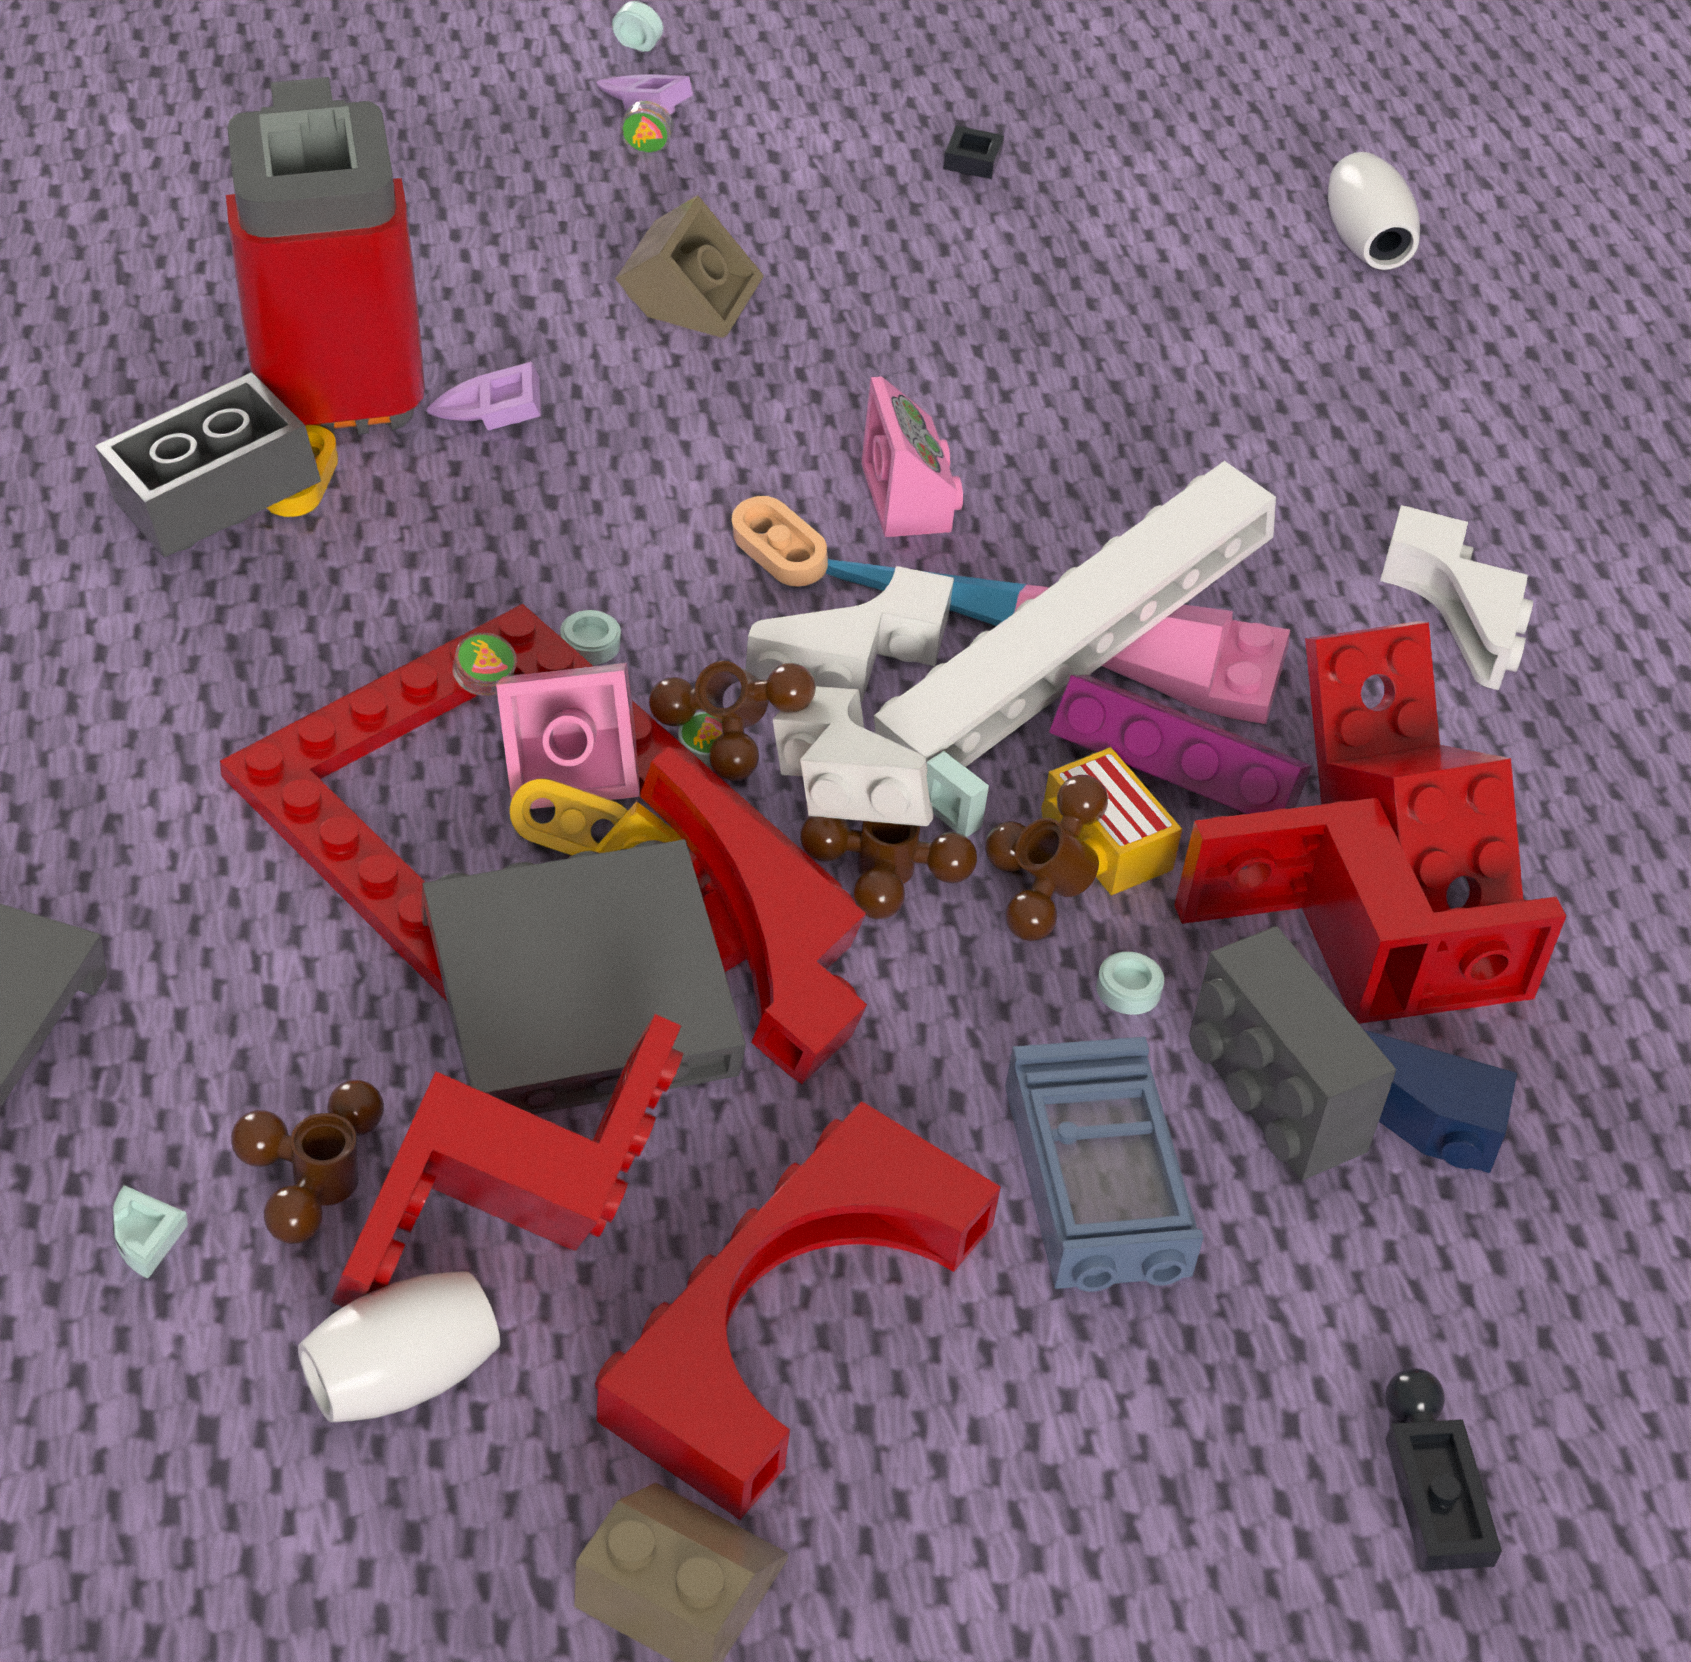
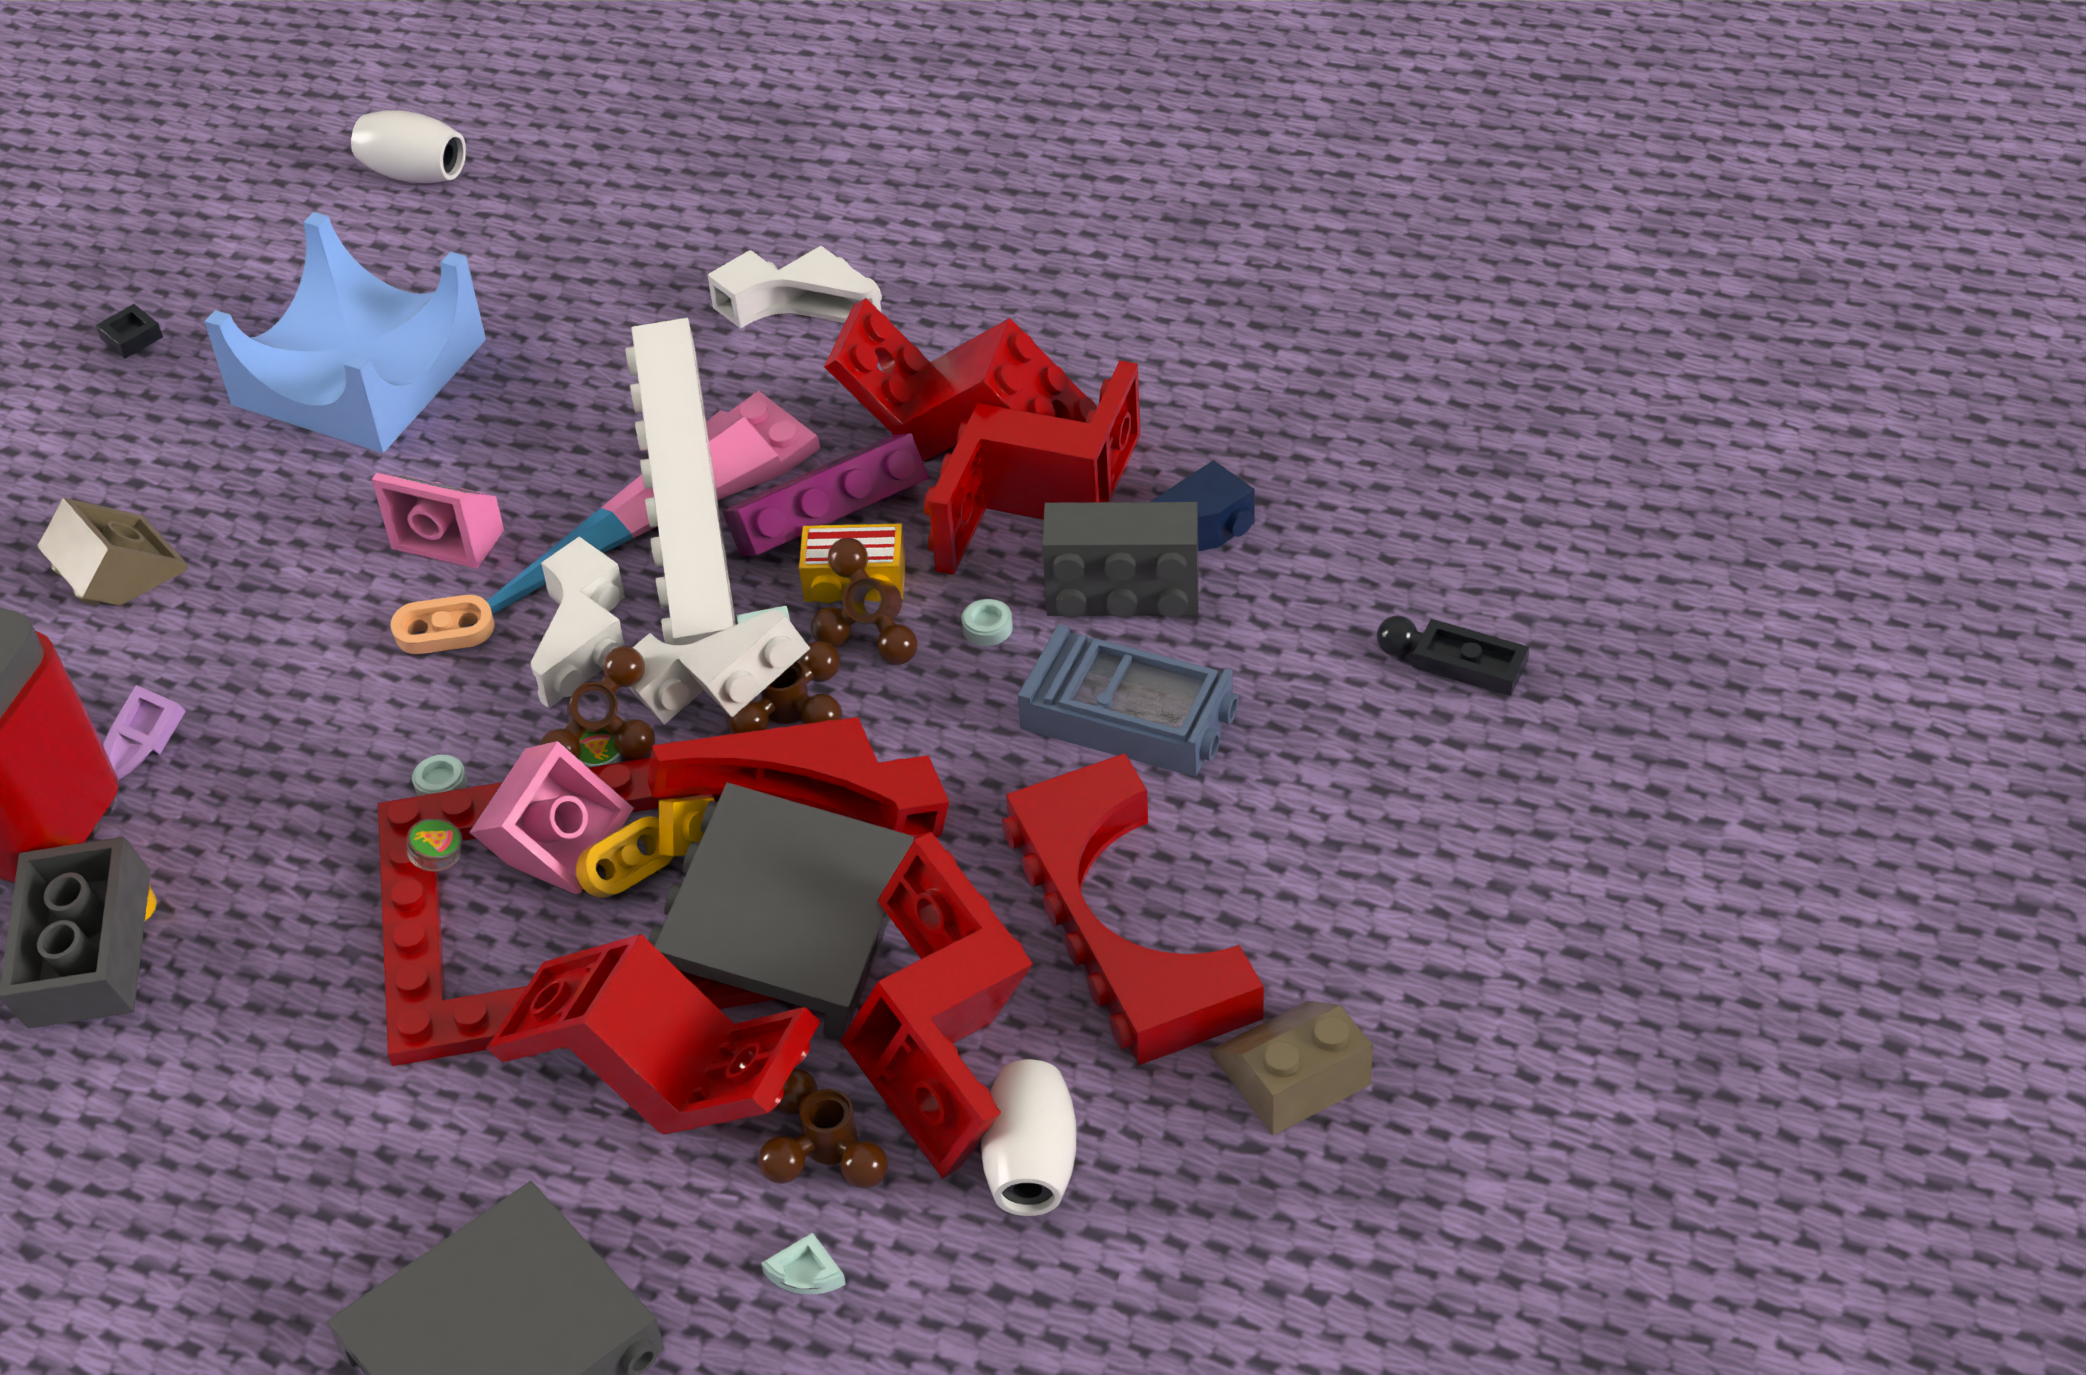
camera: 50 degrees left, 0 degrees up
(318, 947) = (655, 1036): none -> red bracket
(1078, 308) = (351, 348): none -> light blue piece

